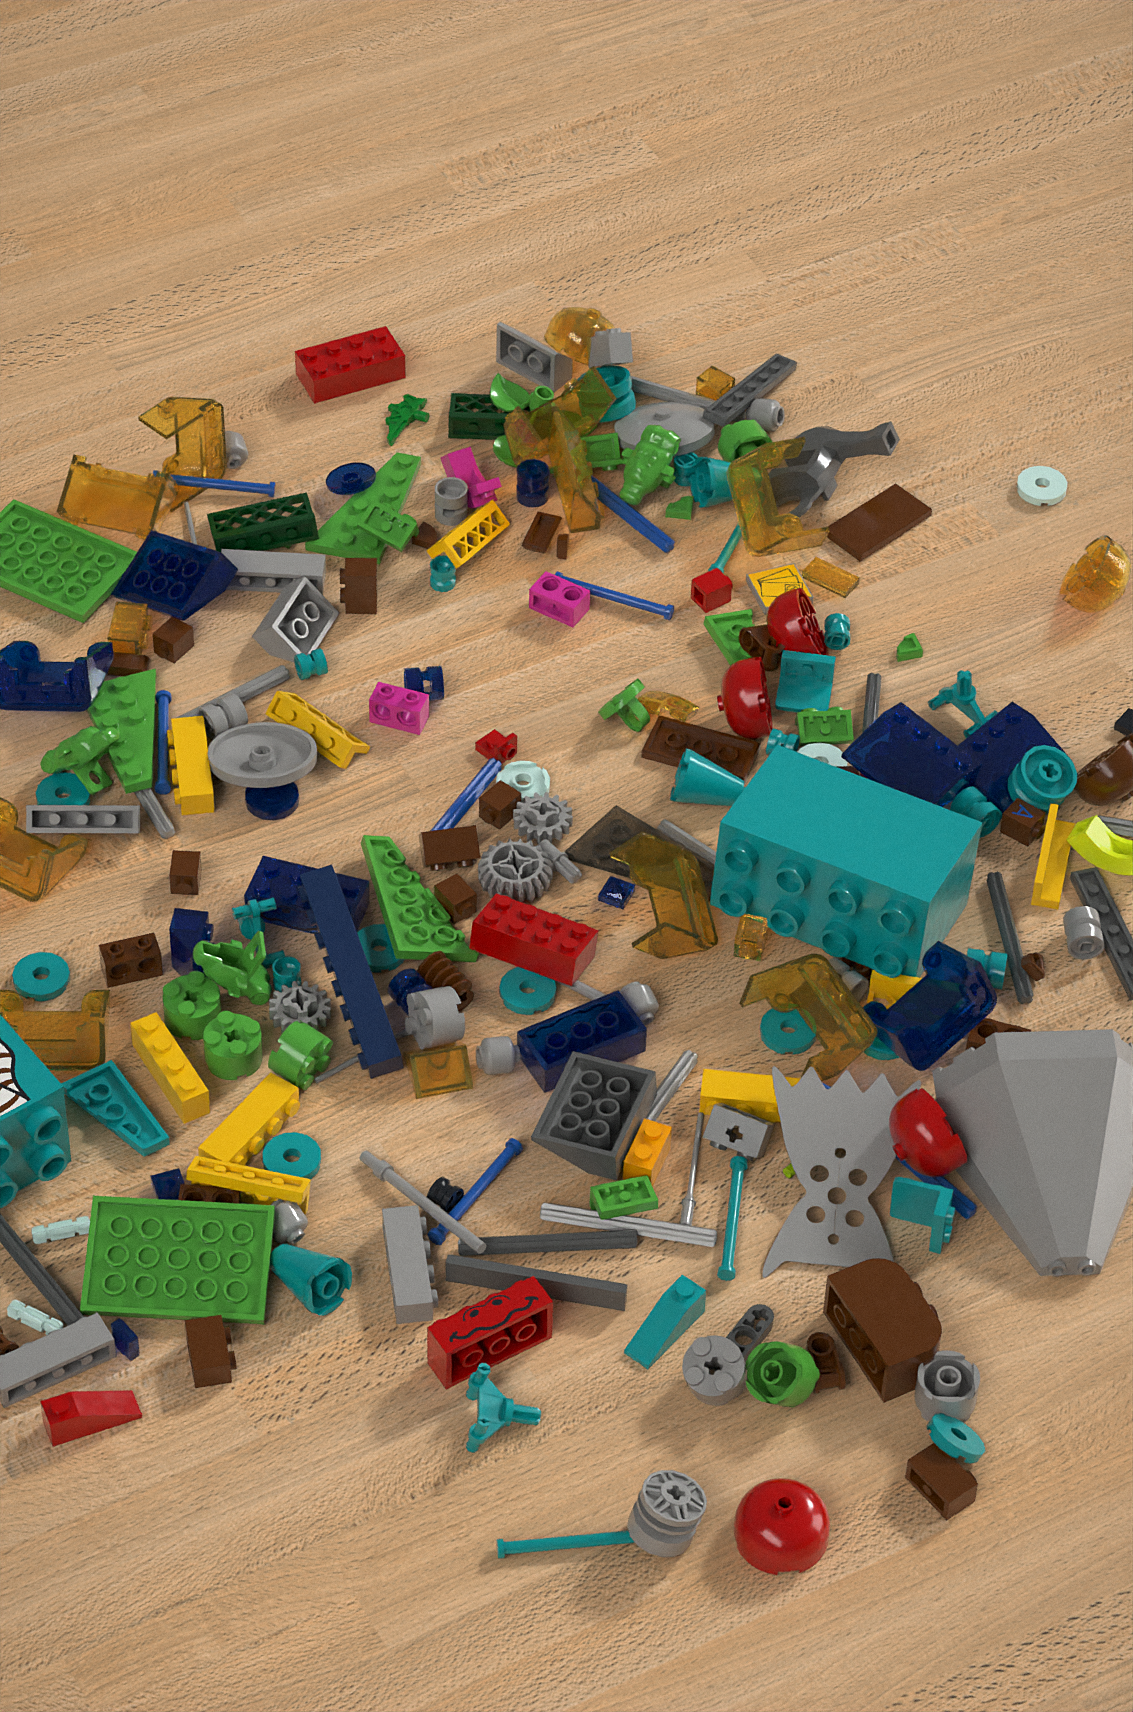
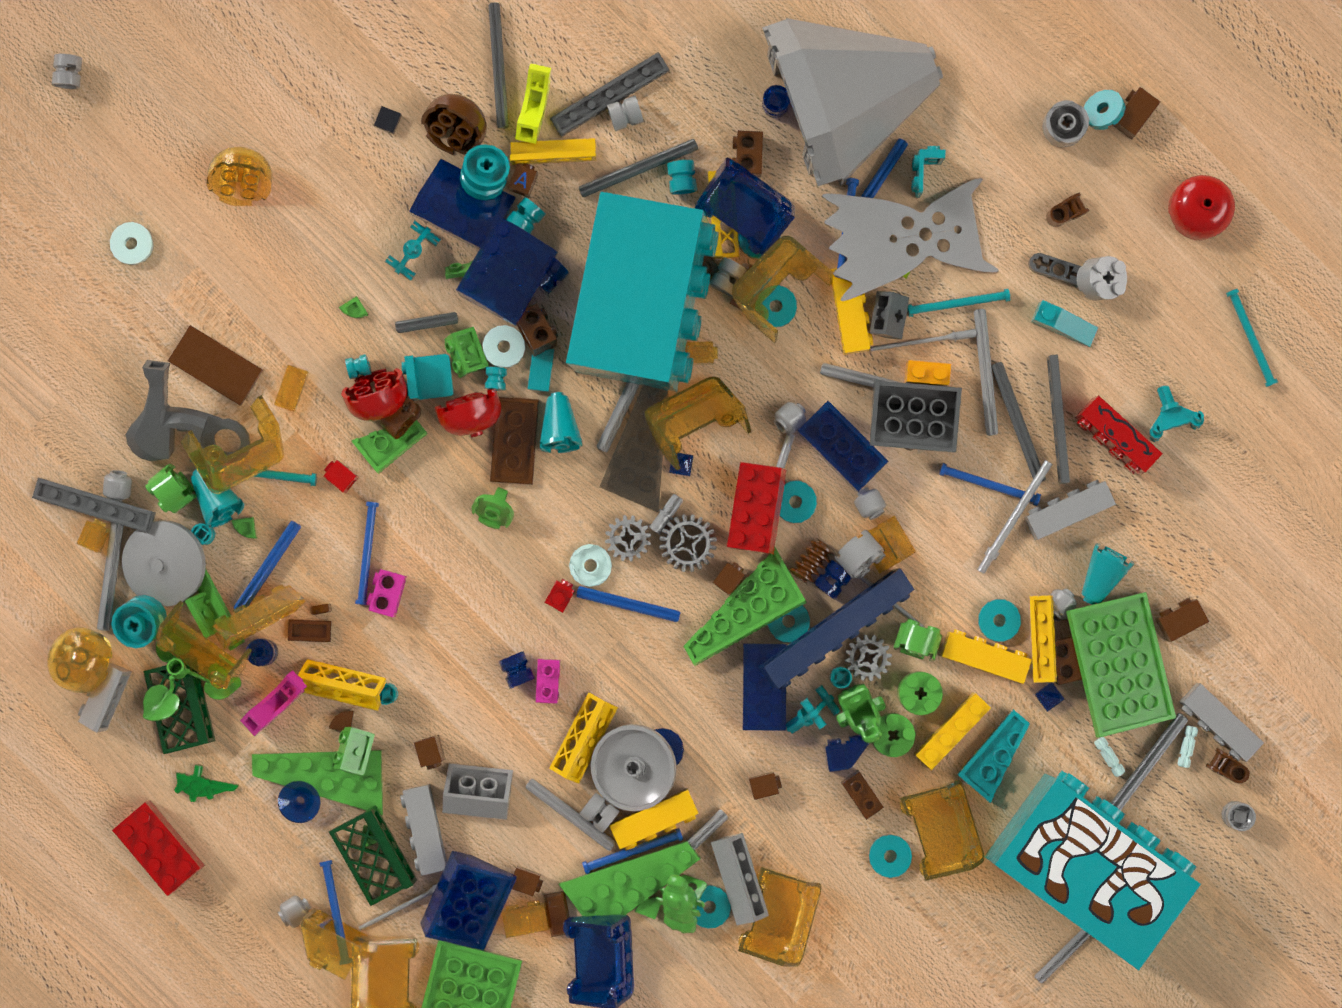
camera: 100 degrees left, 40 degrees up
(86, 1413) = (1253, 681): red slope -> none
(125, 1339) = (1190, 679): clear blue tile -> none
(310, 664) = (521, 769): teal wheel -> none
(445, 1194) = (1003, 503): black wheel -> none
(449, 847) = (683, 597): reddish brown brick -> none
(451, 501) = (303, 711): light grey wheel -> none
(498, 804) = (625, 574): reddish brown brick -> none
(610, 348) = (104, 626): light grey brick -> none
(623, 1197) = (974, 378): bright green bracket -> none
(649, 463) = (225, 560): bright green piece -> none
(660, 702) = (479, 474): clear yellow slope -> none
(666, 1513) = (1223, 290): light grey wheel -> none
(772, 582) = (317, 425): yellow tile -> none
(781, 1374) = (1094, 233): bright green brick -> none
(883, 1323) = (1031, 172): reddish brown brick -> none
(925, 1136) = (875, 180): red cylinder -> none
(1033, 965) = (662, 144): reddish brown tile -> none

